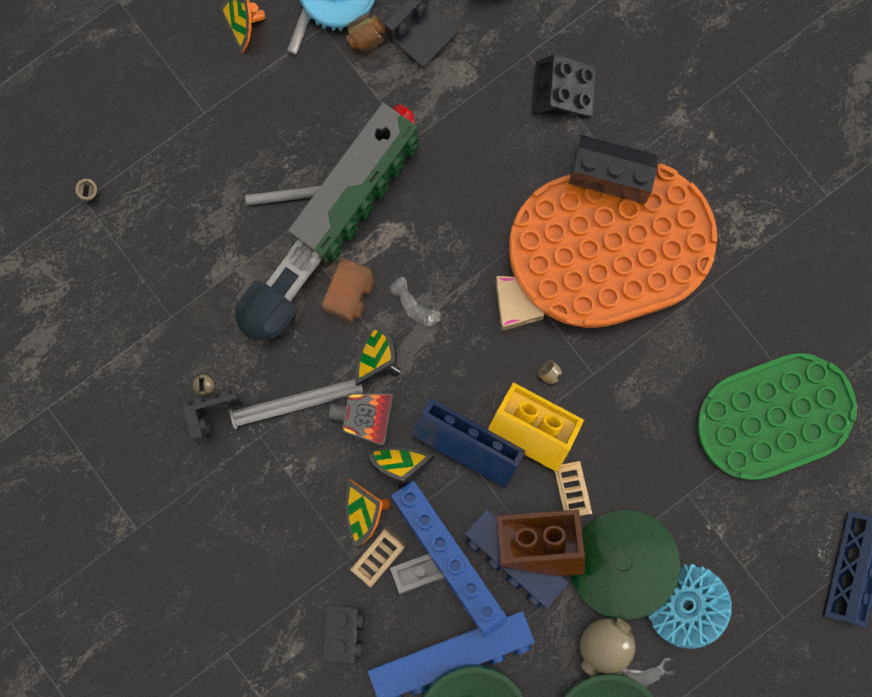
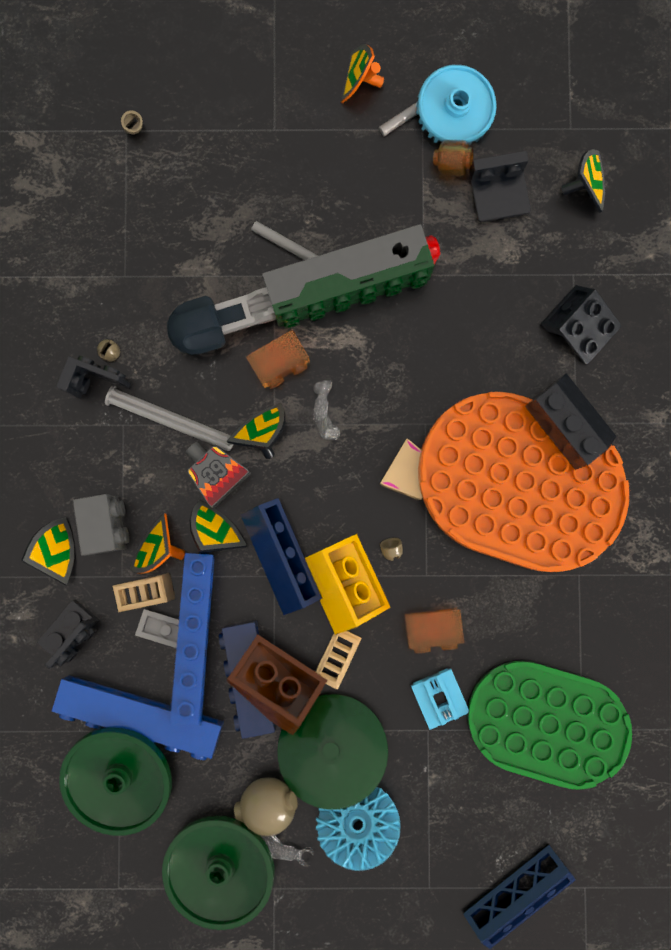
camera: 40 degrees right, 5 degrees up
(281, 576) = (52, 550): none -> shield
(305, 524) = (100, 524): none -> dark grey brick
(630, 410) = (434, 629): none -> clear orange brick
(674, 445) = (451, 709): none -> medium azure piece

